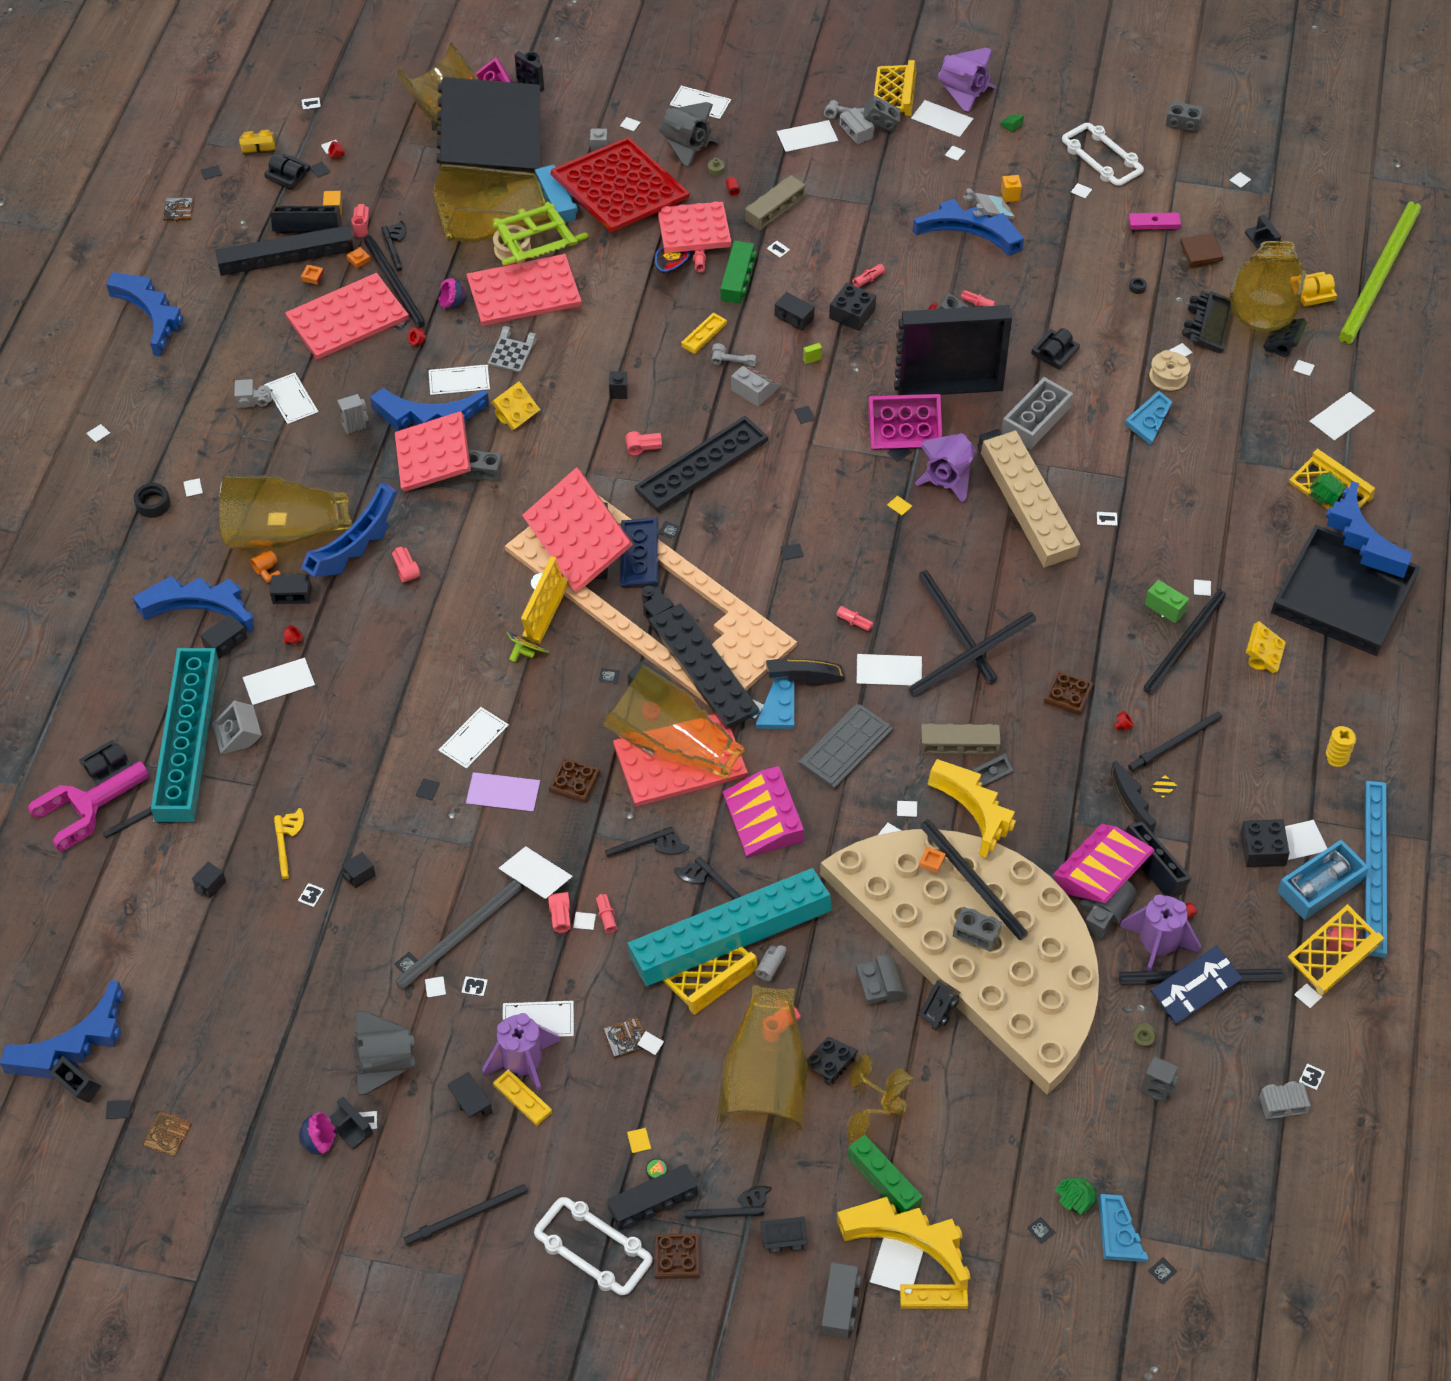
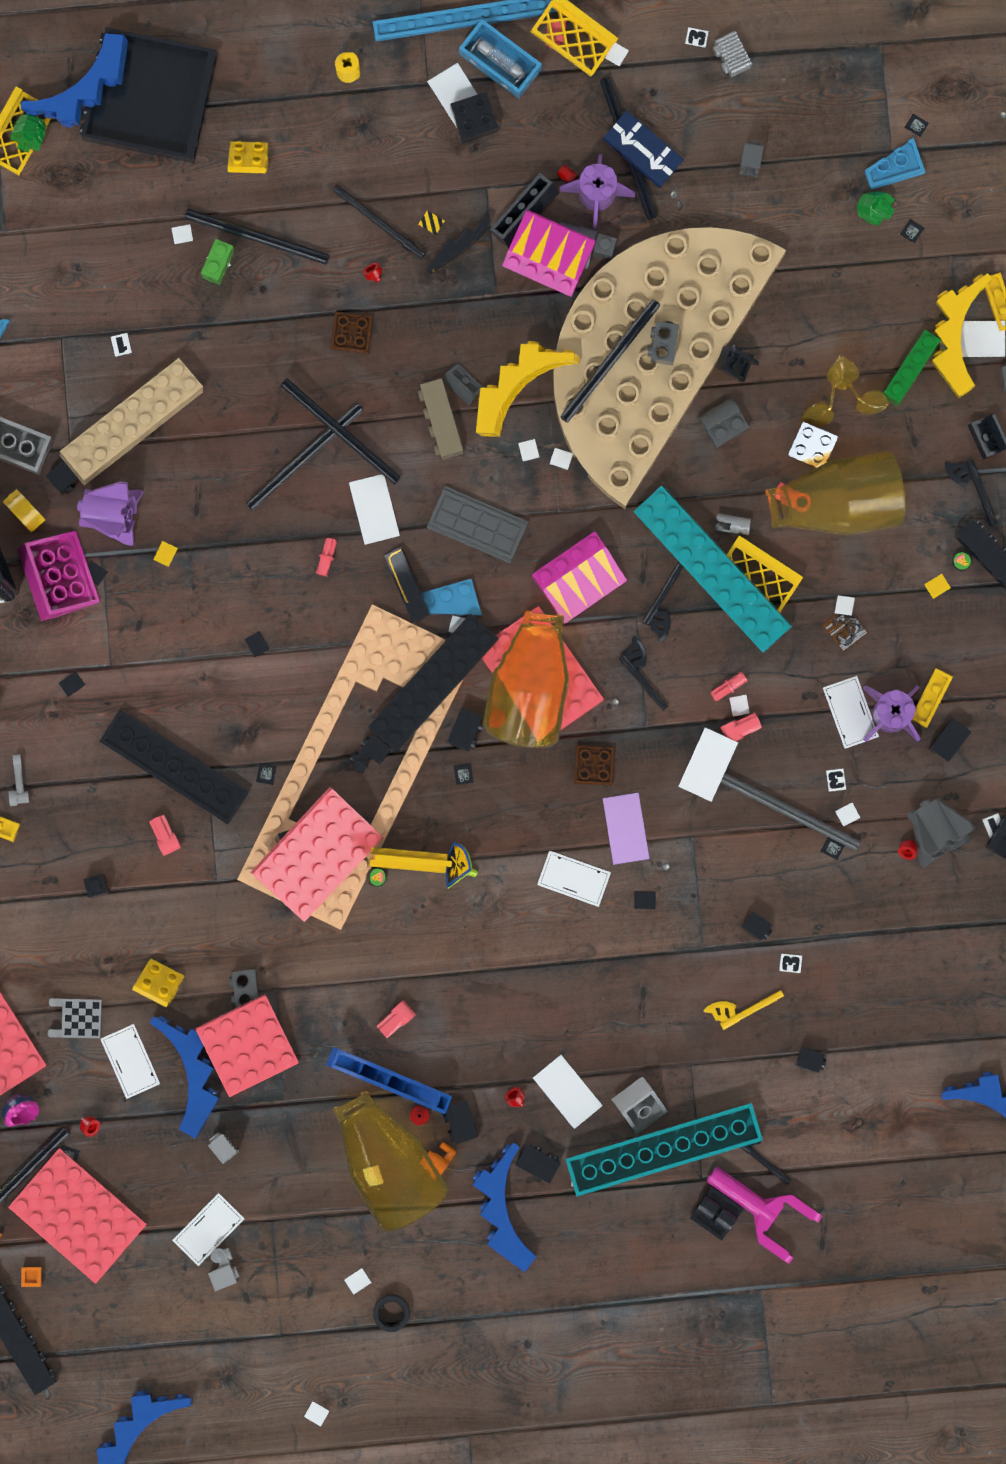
camera: 105 degrees left, 30 degrees up
(640, 561) = (300, 792): dark blue tile -> none
(753, 385) = (49, 745): light grey slope -> none
(932, 860) = (603, 401): orange plate -> none
(970, 408) = (24, 510): none -> yellow brick
(1144, 1034) = (704, 183): olive tile -> none

